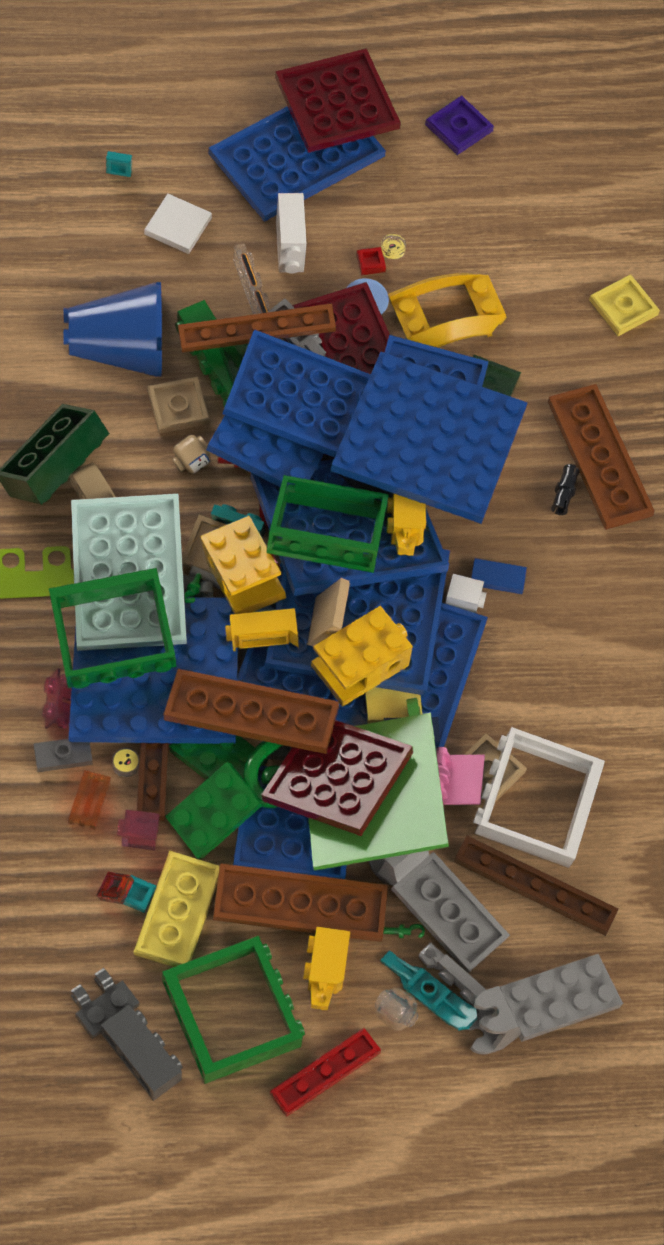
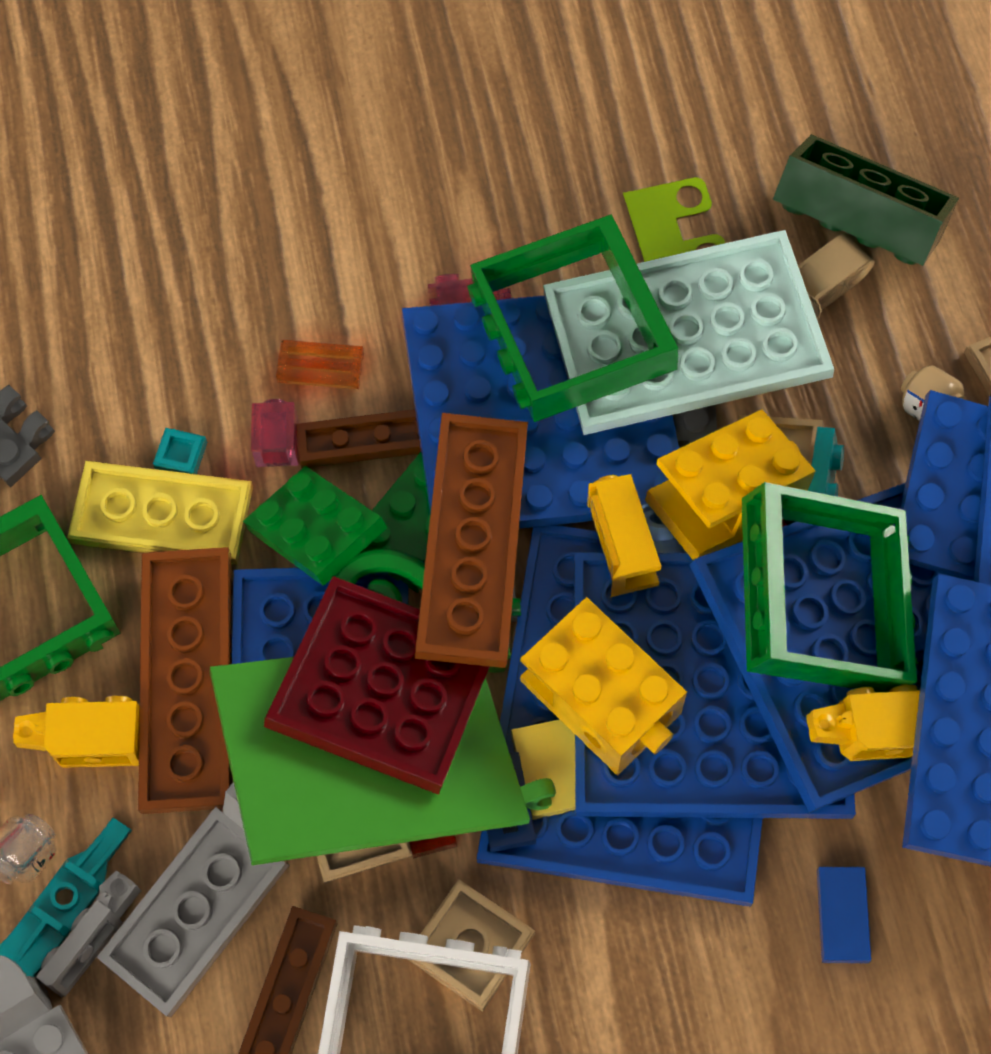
camera: 90 degrees right, 5 degrees up
(62, 755) = (383, 314): flat silver plate -> none
(115, 887) = (180, 418): clear red tile -> none
(125, 762) = (386, 397): tile -> none
(192, 589) = (688, 434): green hand -> none
(328, 612) = (667, 621): tan tile -> none
(402, 931) = (163, 841): green hand -> none
(460, 777) = (430, 886): bright pink hinge -> none
(466, 593) = (786, 859): white brick -> none

